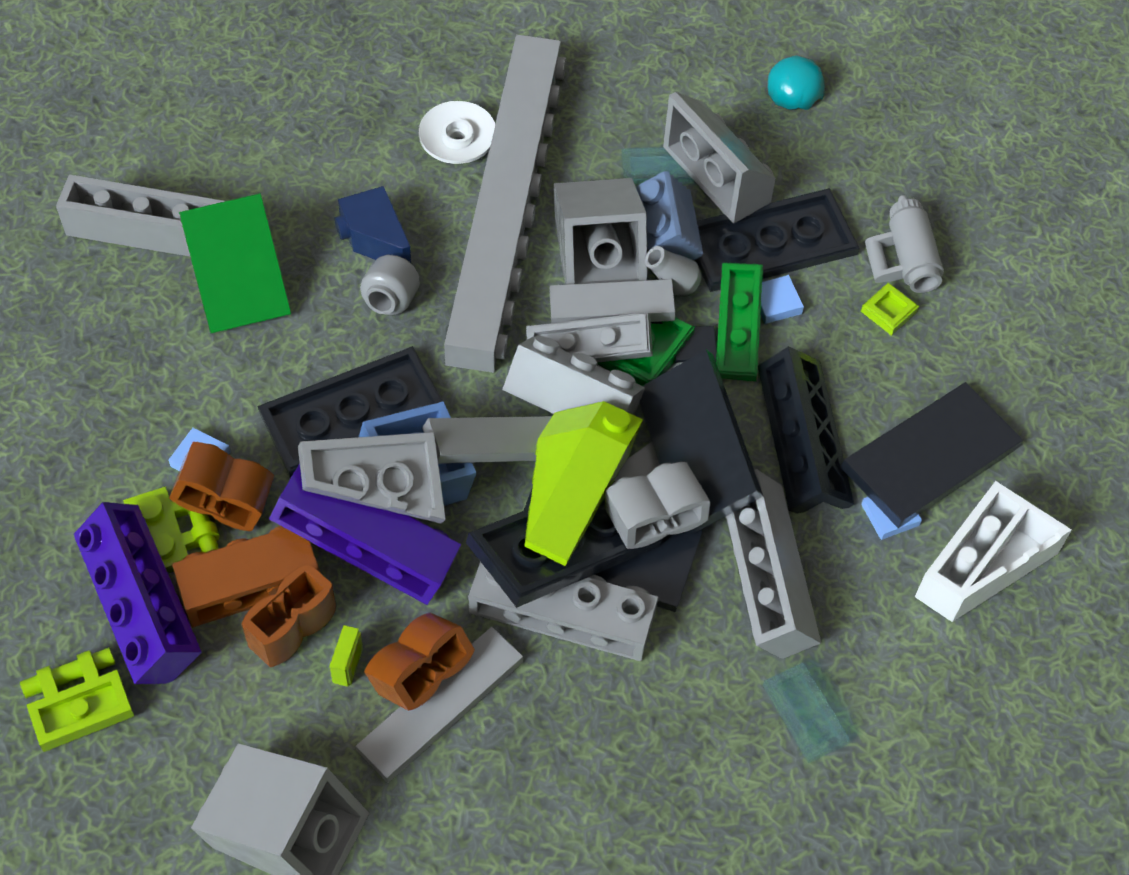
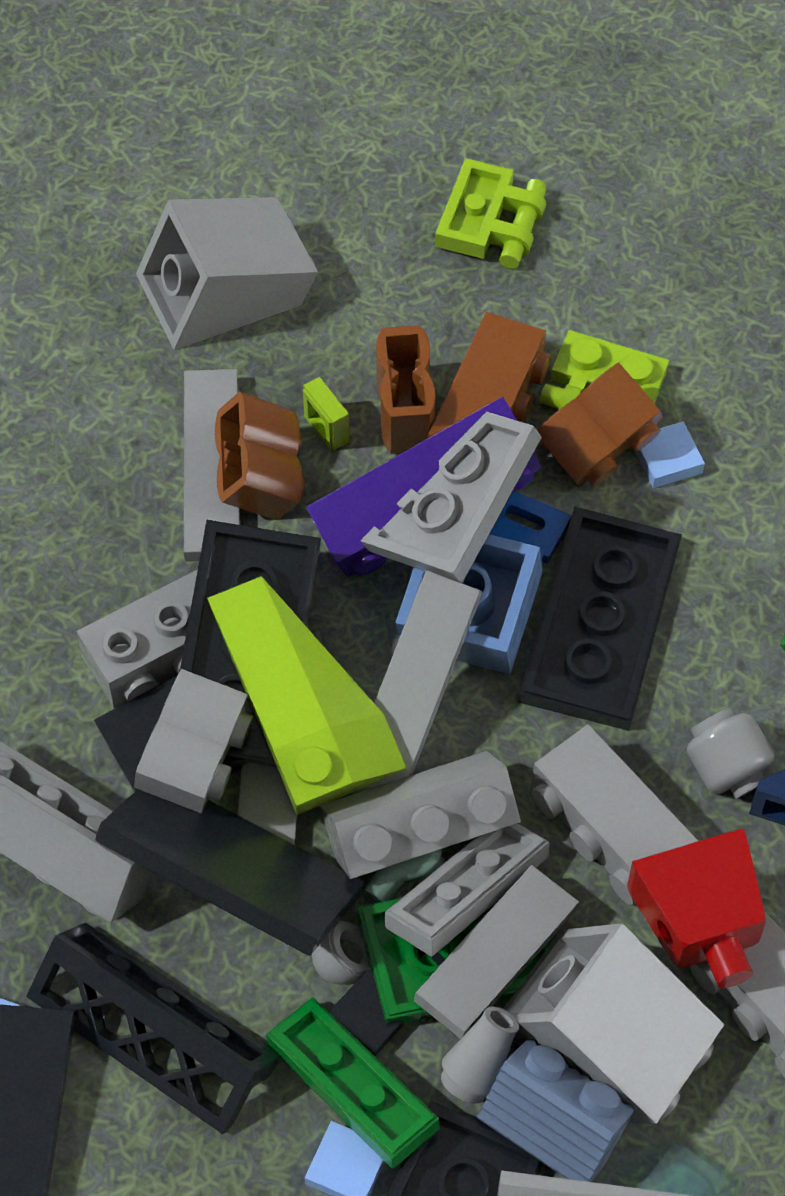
camera: 135 degrees right, 0 degrees up
(136, 594) = (545, 295): dark purple brick -> none
(506, 212) = (703, 904): none -> red torso

